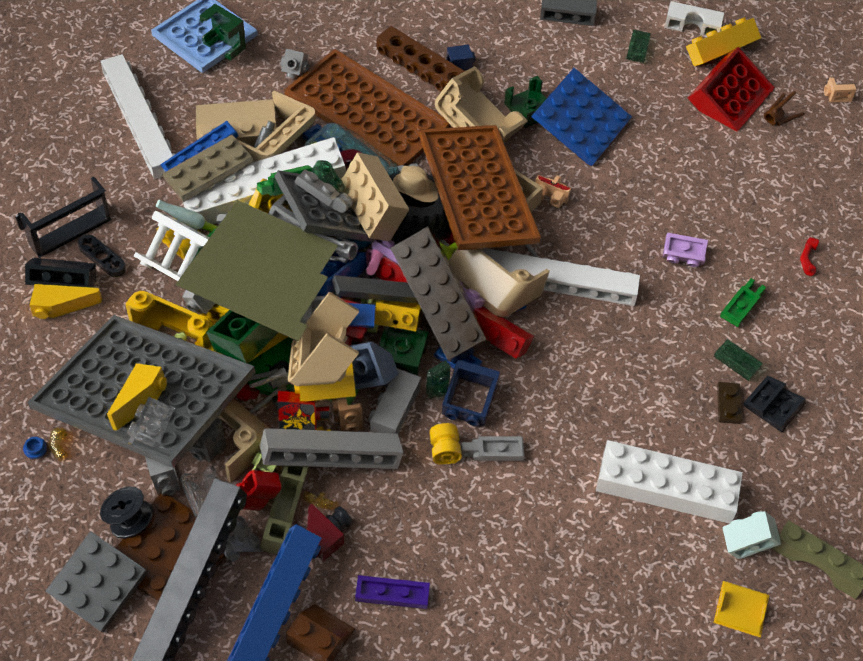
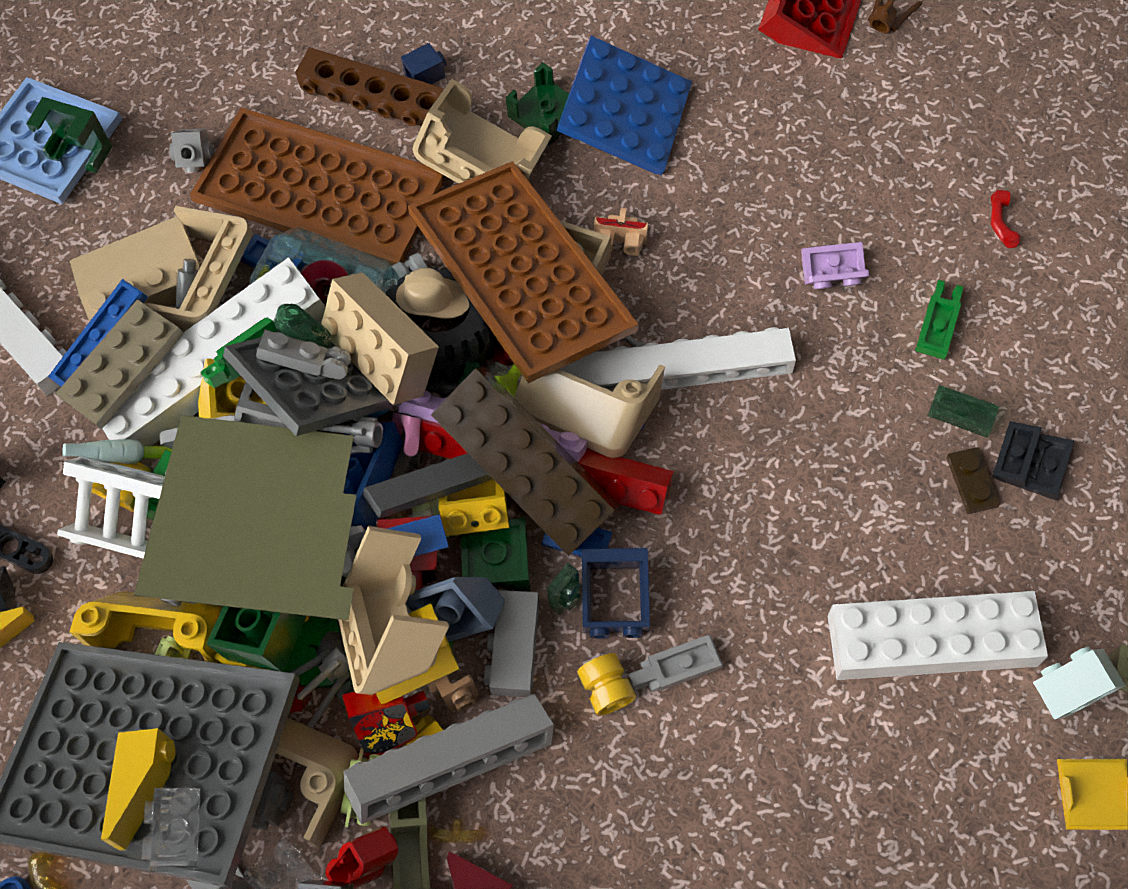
camera: 10 degrees left, 10 degrees up
(340, 518) = (495, 859): black wheel -> none

